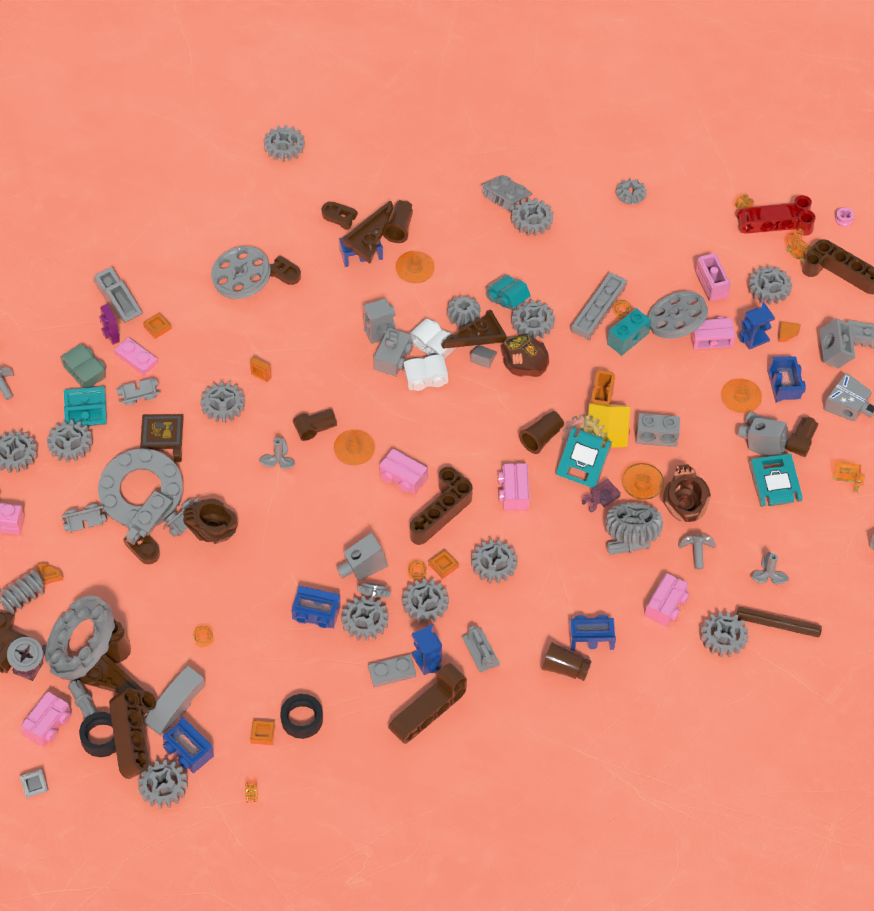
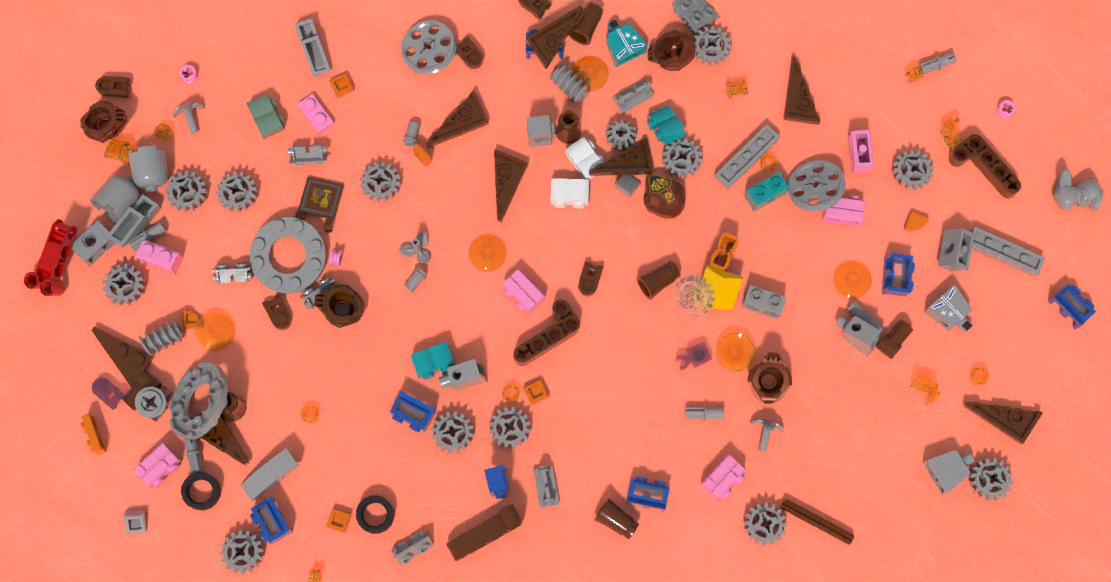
camera: 15 degrees right, 20 degrees up
(77, 585) = (215, 341): none -> dish
(86, 406) = (259, 158): teal slope -> none
(109, 324) = (295, 80): magenta plate -> none
(128, 730) = (221, 526): reddish brown beam -> none
(148, 517) = (286, 288): light grey hinge -> none
(193, 481) = (336, 257): none -> bright pink bush
(243, 357) = (411, 134): none -> light grey pin
(285, 483) = (415, 279): none -> light grey pin
(297, 328) = (466, 118): none -> reddish brown wing
(309, 425) = (451, 224): reddish brown piece -> none
(323, 555) = (432, 360): none -> teal brick
(356, 737) = (405, 553): none -> light grey hinge
(357, 373) = (508, 176): none -> reddish brown wing
(374, 589) = (466, 407): light grey gear -> none
(392, 671) = (464, 487): light grey plate -> none
(393, 352) = (545, 163): light grey brick -> none
(397, 276) = (570, 84): none -> light grey piece
(407, 312) = (568, 127): none -> reddish brown plant
(443, 231) = (624, 43): none -> teal torso
(466, 276) = (633, 96): none -> light grey hinge
(470, 452) = (588, 285): none -> reddish brown plate
(486, 555) = (571, 397): light grey gear -> none
(494, 226) = (672, 50): none -> copper helmet
(515, 486) = (619, 330): bright pink brick -> none
(569, 248) = (741, 88): none -> clear yellow bush
(585, 455) = (689, 316): teal container -> none
(624, 194) = (805, 40): light grey gear -> none
(634, 523) = (711, 401): light grey gear -> none
(635, 248) = (799, 105): none -> reddish brown wing
(755, 325) = (885, 216): blue window -> none
(764, 189) = (938, 63): none -> light grey axle
(769, 564) = (826, 461): light grey plant -> none
(776, 482) = (857, 381): teal container -> none
(778, 217) = (942, 97): red piece -> none

